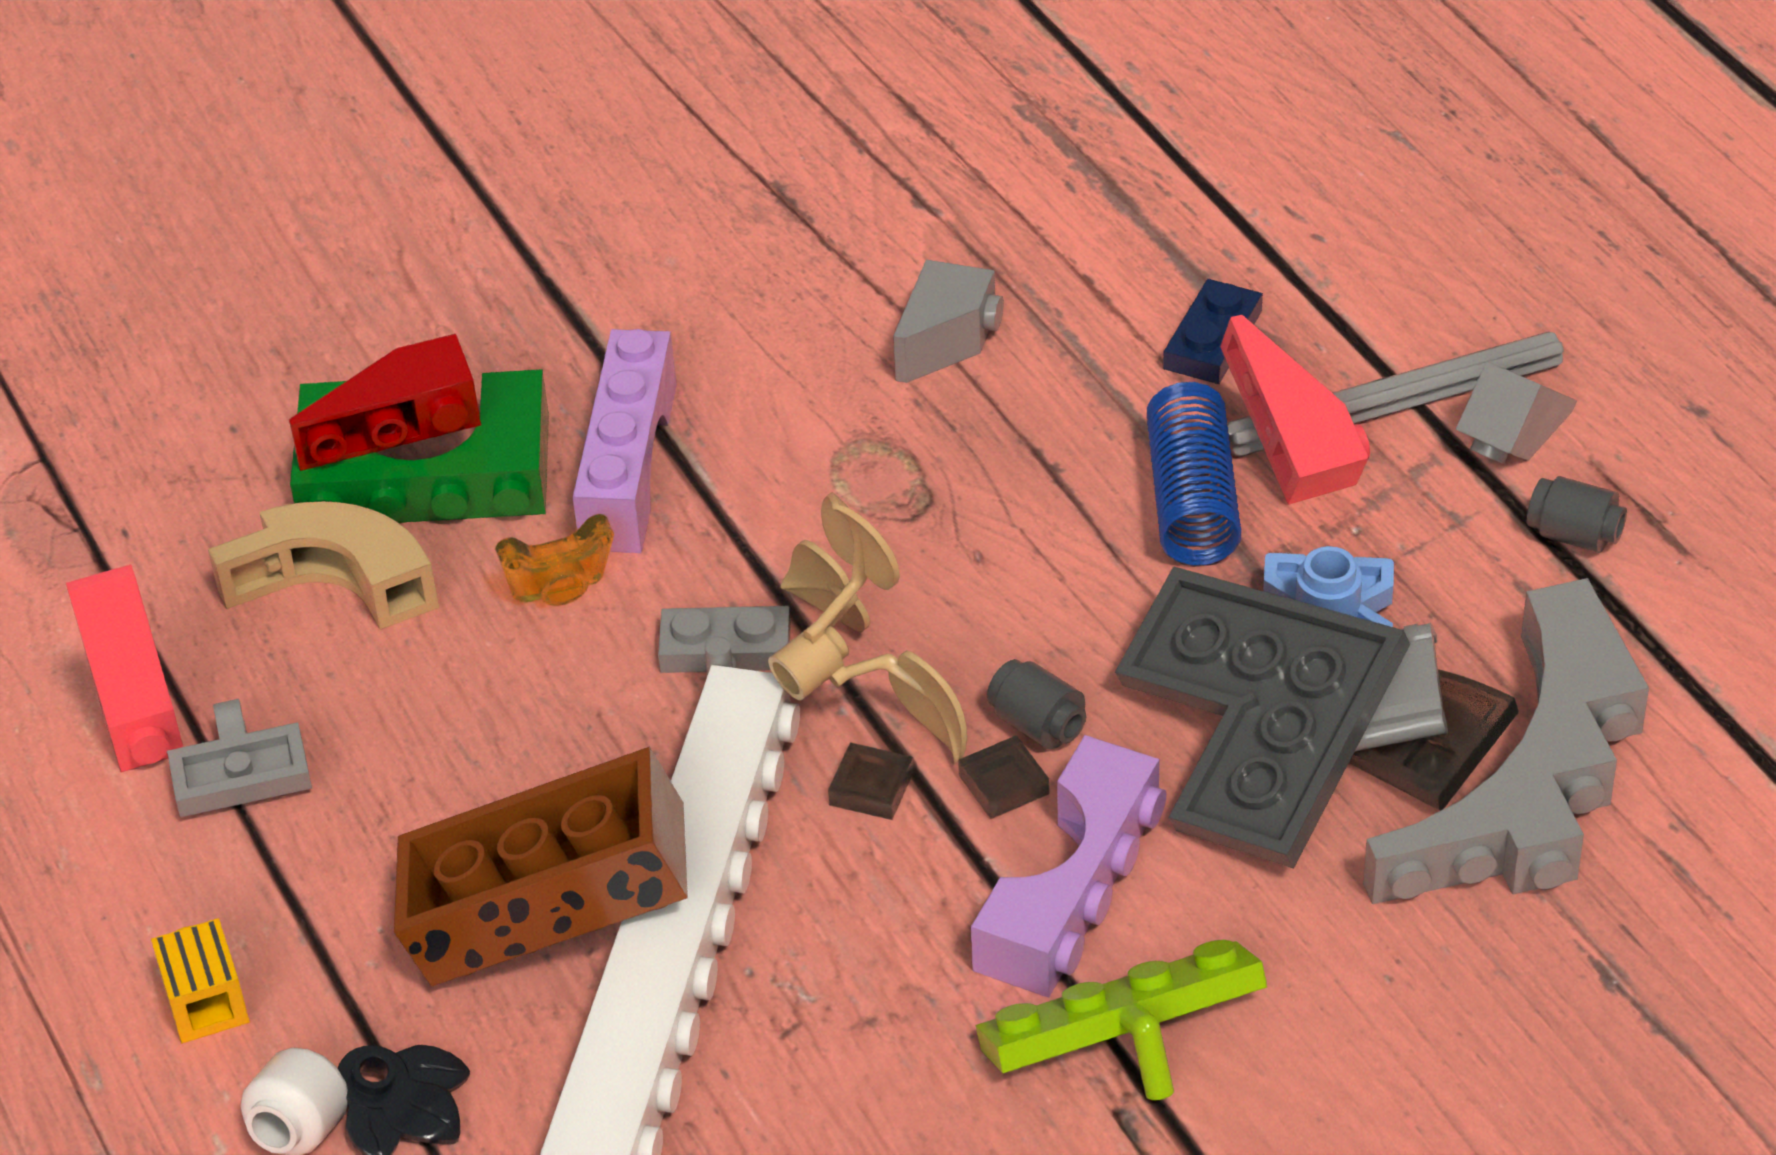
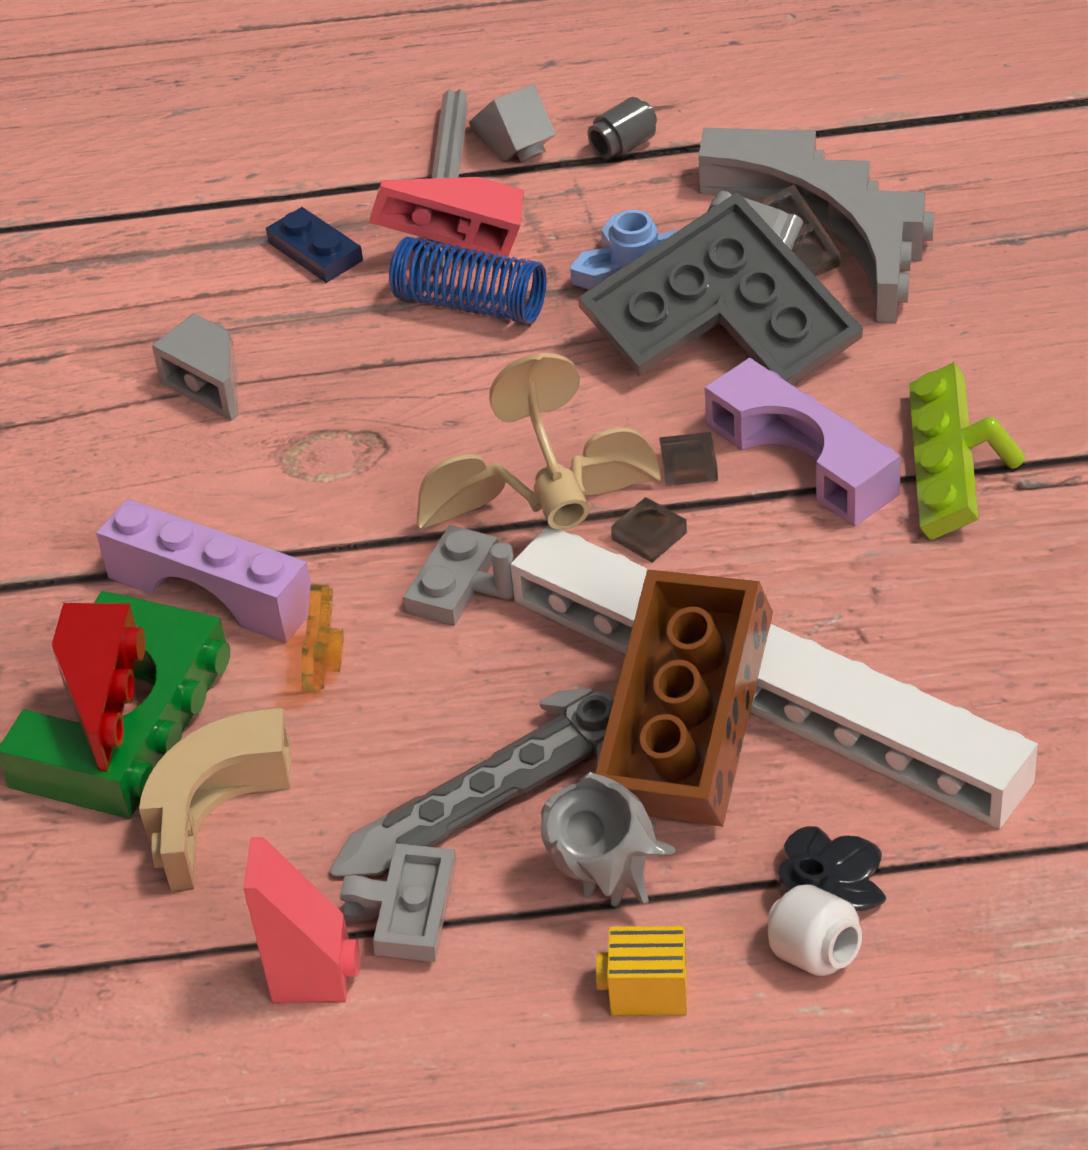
camera: 65 degrees left, 0 degrees up
(327, 870) = (601, 837): none -> light grey hair
(391, 757) = (506, 774): none -> sword
(1037, 703) = (642, 410): dark grey brick -> none

